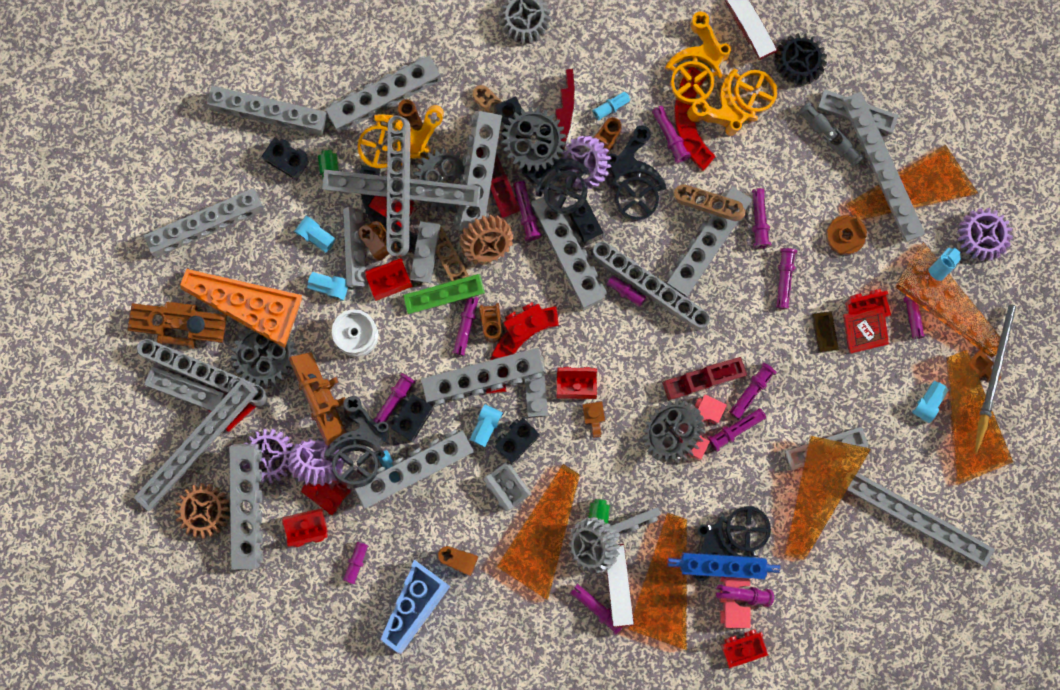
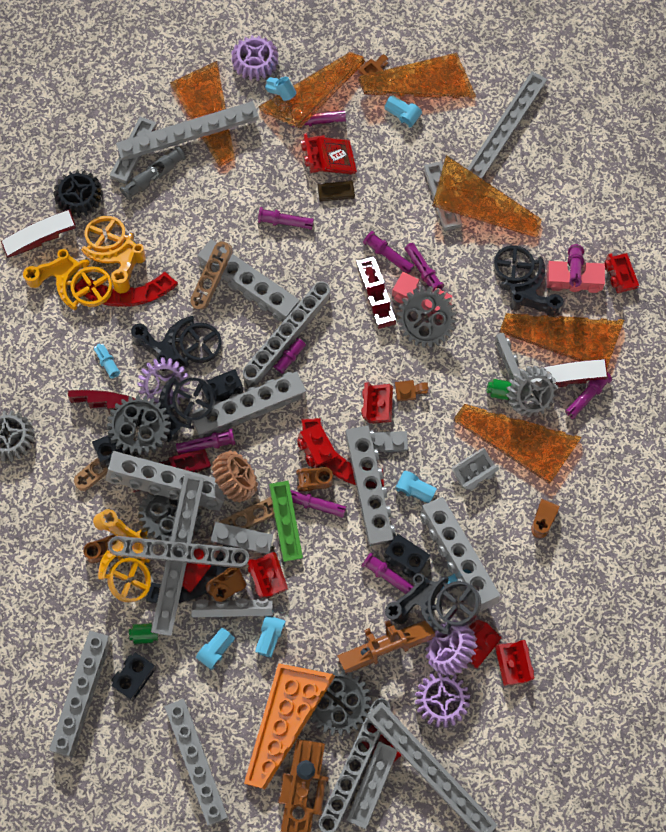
camera: 90 degrees left, 10 degrees down
(195, 516) = (503, 775): nougat gear -> none
(239, 556) = (546, 719): light grey brick -> none
(350, 322) = (317, 619): white wheel -> none
(355, 563) = (548, 615): magenta pin -> none
(378, 103) = (58, 529): light grey brick -> none
(413, 606) = (588, 557): light blue wedge -> none
(521, 444) = (435, 456): black brick -> none
(608, 137) = (135, 366): dark orange piece -> none
(674, 142) = (148, 305): magenta pin -> none
(724, 565) = (550, 281): blue plate -> none
(761, 227) = (237, 236): magenta pin -> none
(849, 224) = (248, 177): dark orange plate -> none
(987, 406) = (411, 64): dark grey piece -> none

